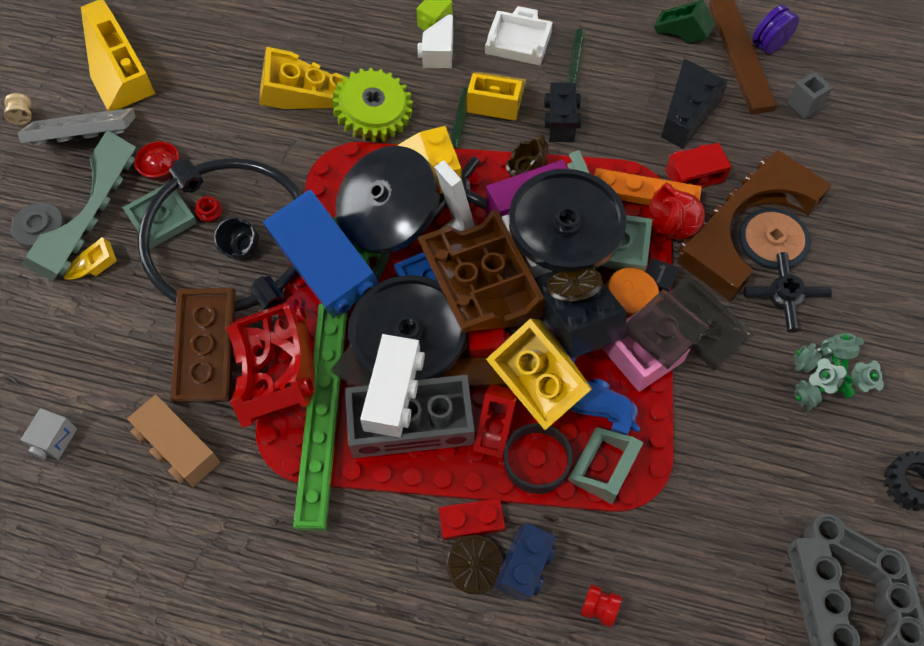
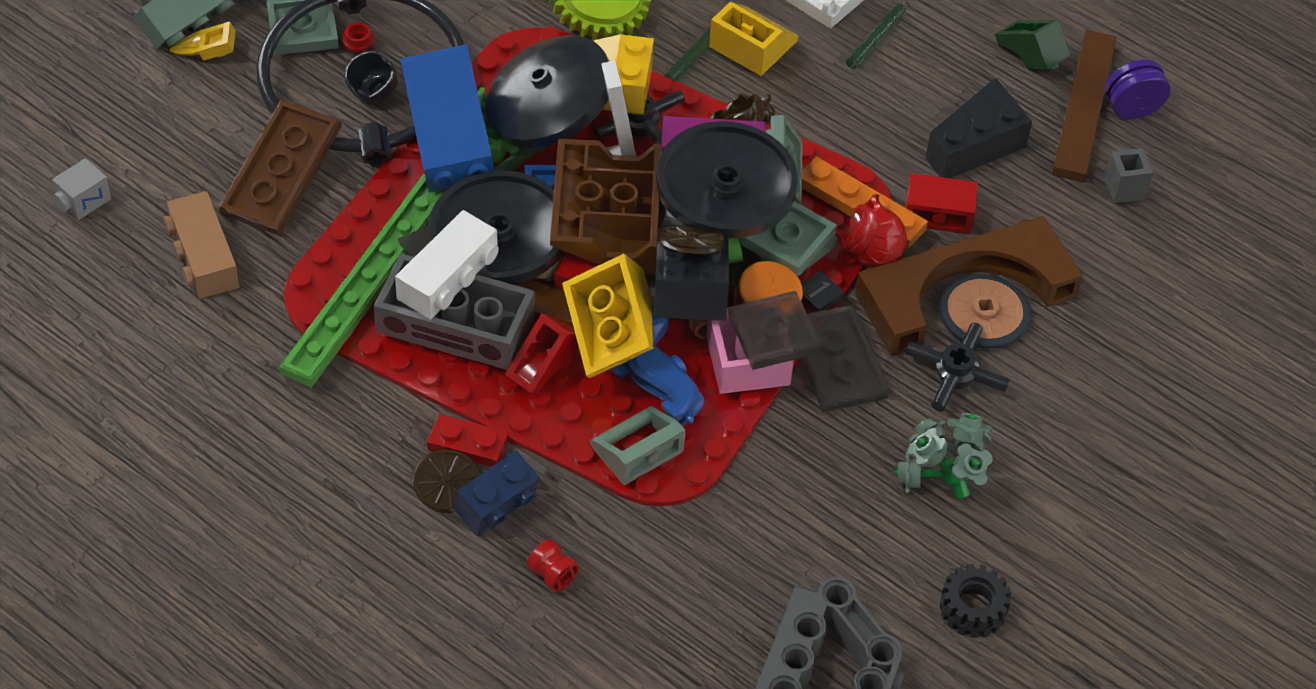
camera: 20 degrees right, 10 degrees down
(295, 385) = (312, 225): red fence -> none
(537, 428) = (568, 378): black tyre -> none
(562, 114) = (816, 84): black brick -> none

